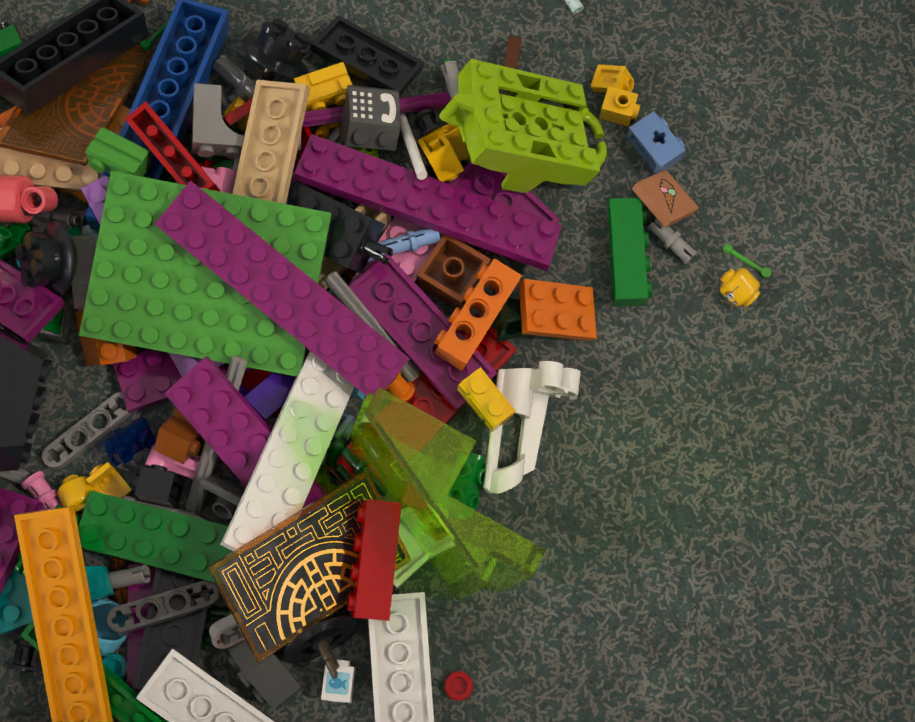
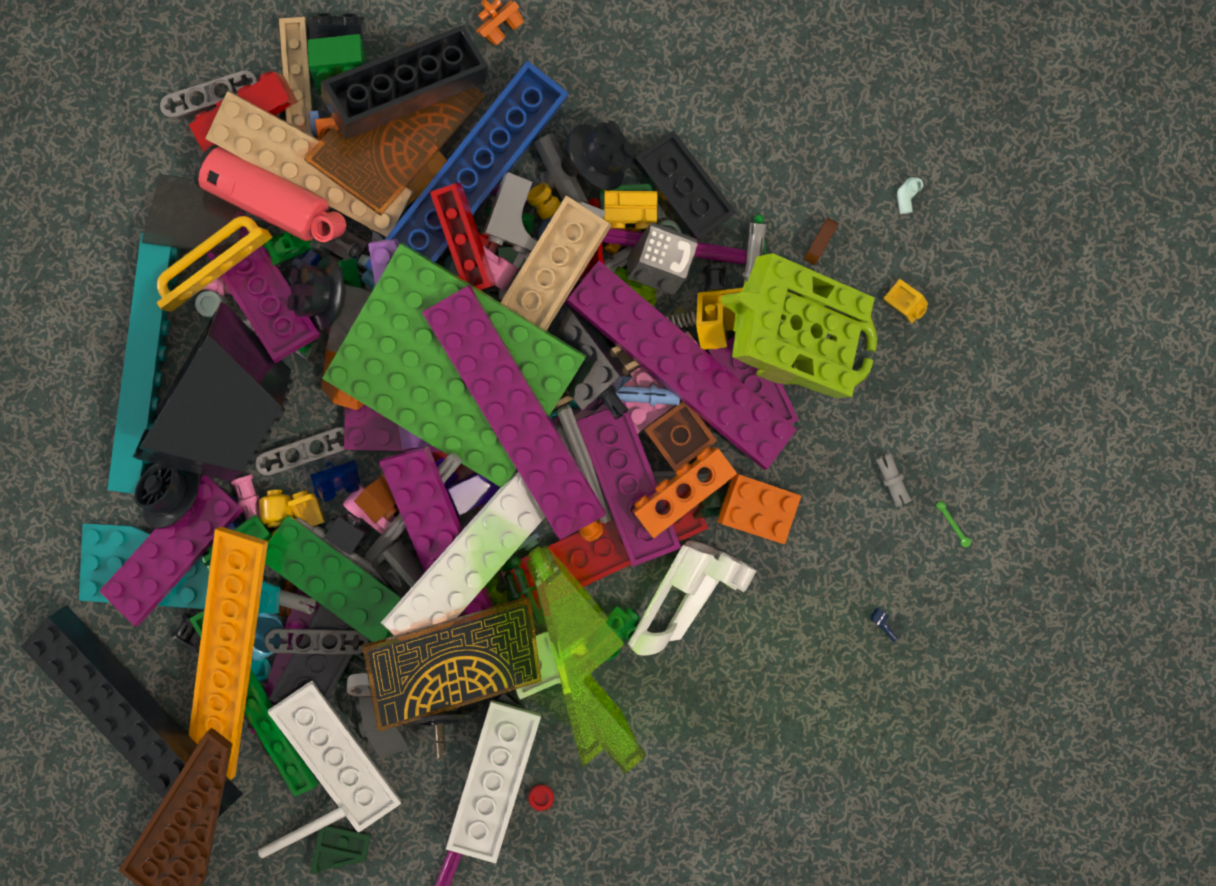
camera: 25 degrees right, 15 degrees up
(115, 153) = (412, 220): bright green brick -> none
(146, 44) = (480, 91): green hinge -> none
(238, 113) = (546, 206): red tile -> none
(340, 688) = (441, 766): brick -> none
(375, 559) = (508, 679): red brick -> none
(412, 148) = (688, 306): white bar -> none
(486, 399) = (659, 573): yellow brick -> none
(619, 106) = (901, 330): yellow brick -> none
(627, 252) = (847, 475): green brick -> none
(657, 155) = (909, 371): medium blue brick -> none
(665, 198) = (903, 439): nougat tile -> none
(717, 373) = (879, 618): none -> dark blue hand
(739, 287) = (934, 549): yellow head -> none

